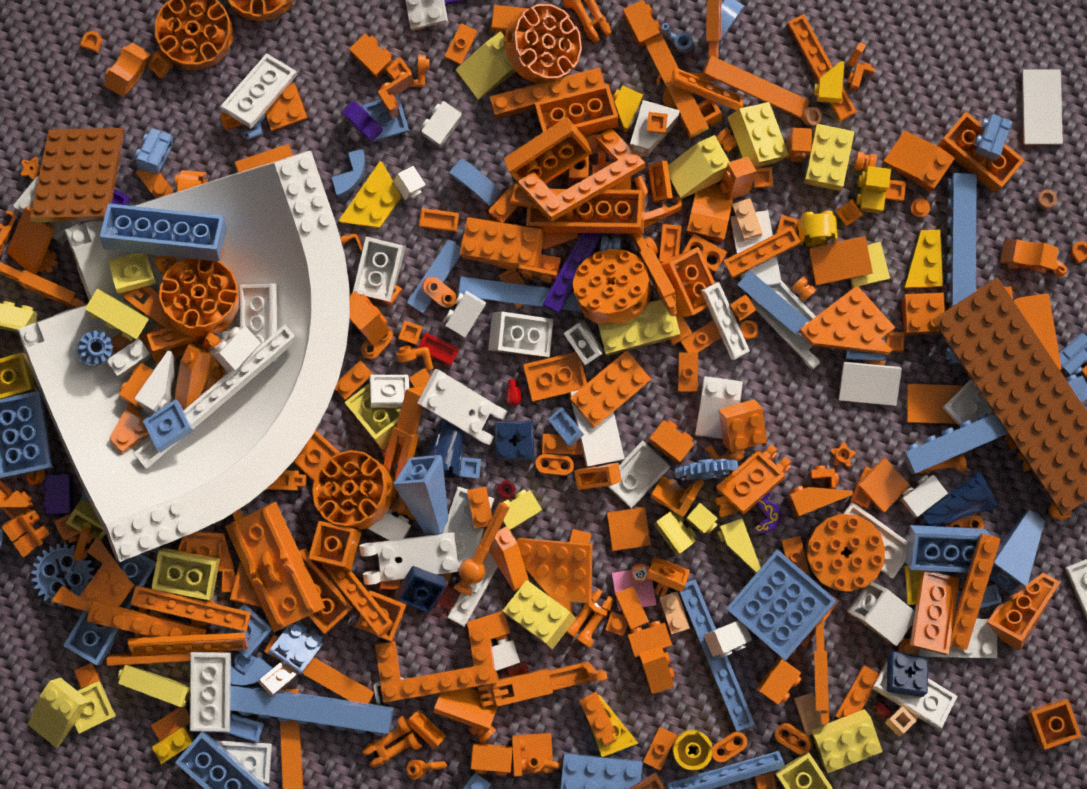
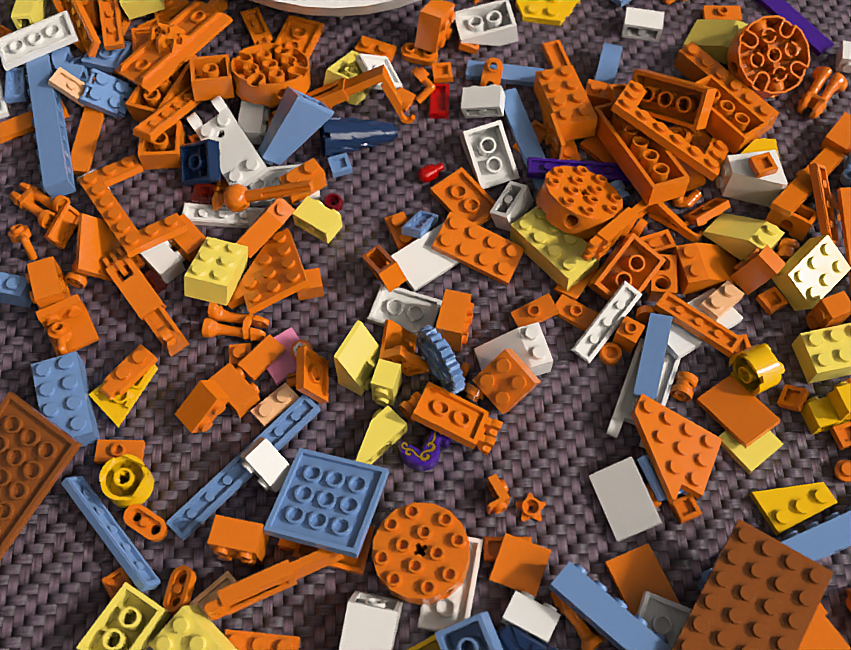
camera: 65 degrees right, 20 degrees down
(409, 183) = (575, 19): white brick -> none
(454, 401) = (392, 112): white hinge -> none
(525, 448) = (382, 201): dark blue brick -> none
(554, 464) = (378, 234): orange plate -> none
(628, 529) = (340, 320): orange tile -> none
(729, 284) = (643, 313): none -> orange tile
(794, 551) = (395, 498): orange plate -> none
(809, 499) = (461, 486): orange slope -> none
(919, 311) = (723, 515): orange brick -> none

